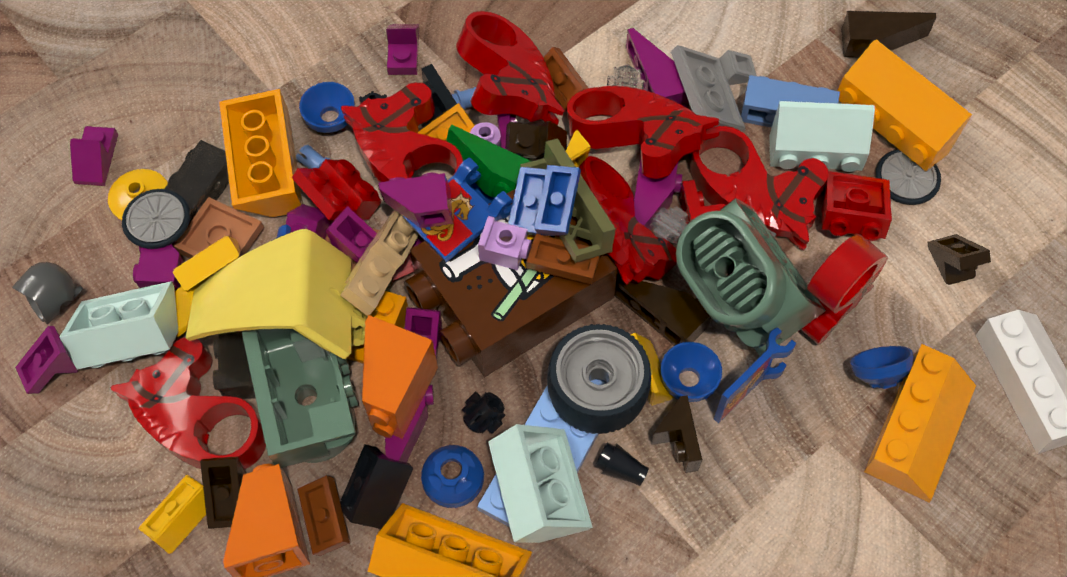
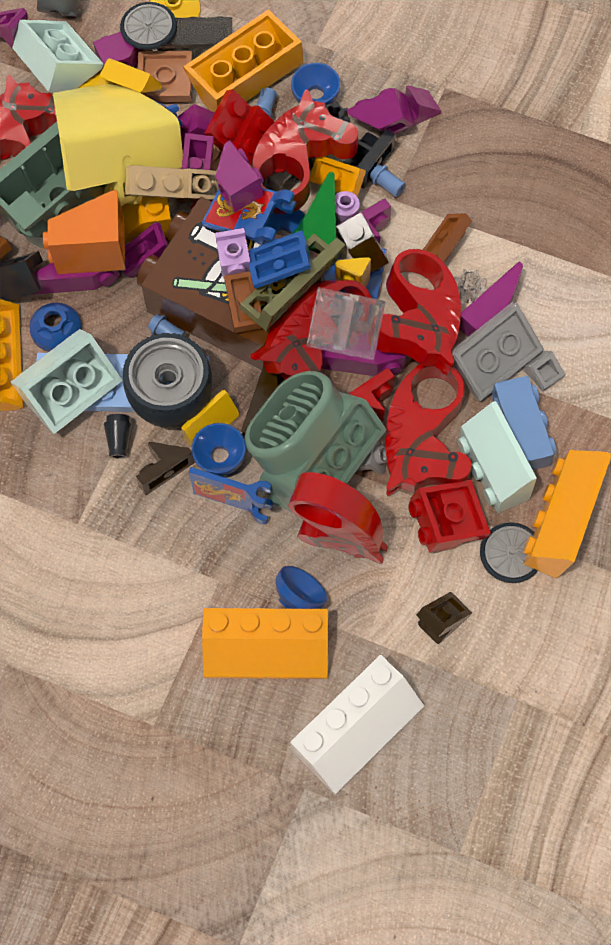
camera: 65 degrees right, 5 degrees up
(402, 62) = (384, 112): none -> magenta slope
(483, 412) = (110, 320): black gear -> none
(512, 66) = (417, 206): red animal -> none
(522, 364) = (160, 325): none -> medium blue pin
(637, 181) = (346, 323): none -> clear slope
(669, 224) = (346, 377): clear gear -> none

